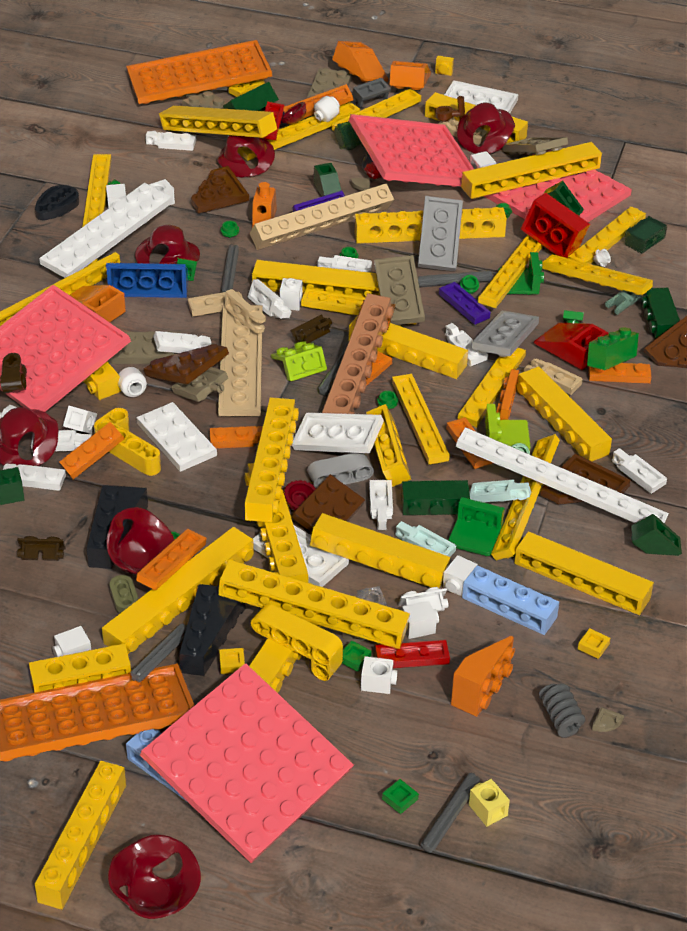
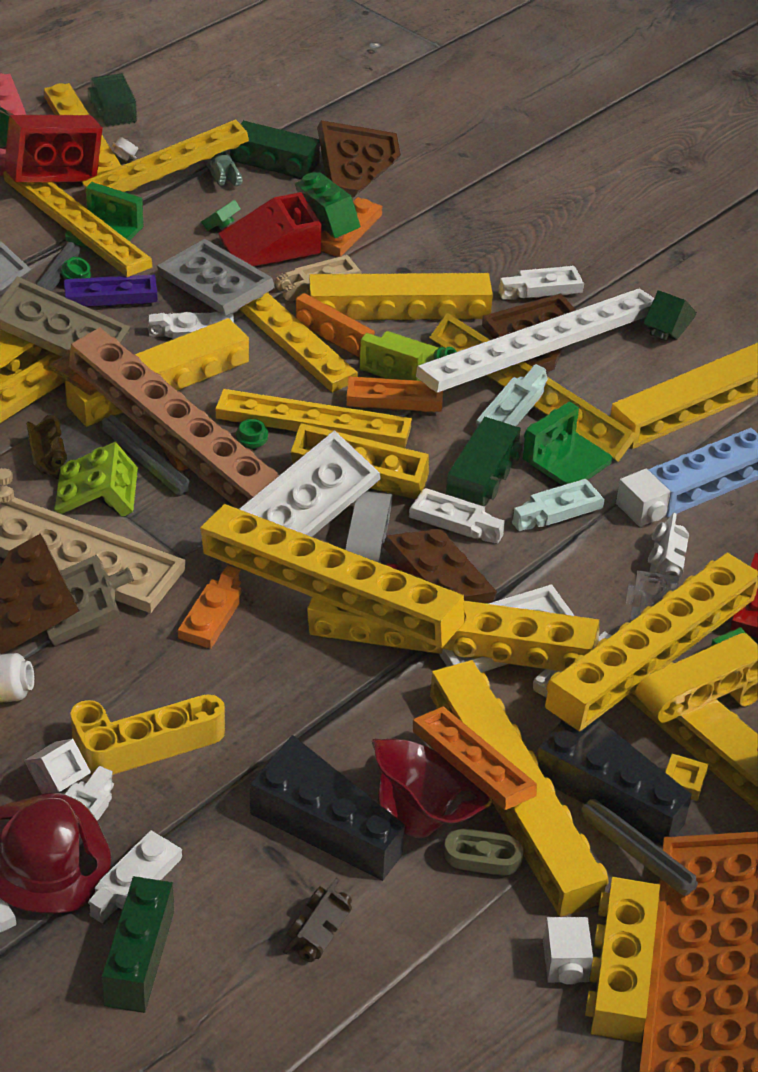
camera: 65 degrees left, 0 degrees up
(91, 450) = (143, 776): orange plate -> none
(176, 436) = (161, 674): white plate -> none
(379, 551) = (564, 548): yellow brick -> none
(421, 619) = (700, 553): white brick -> none

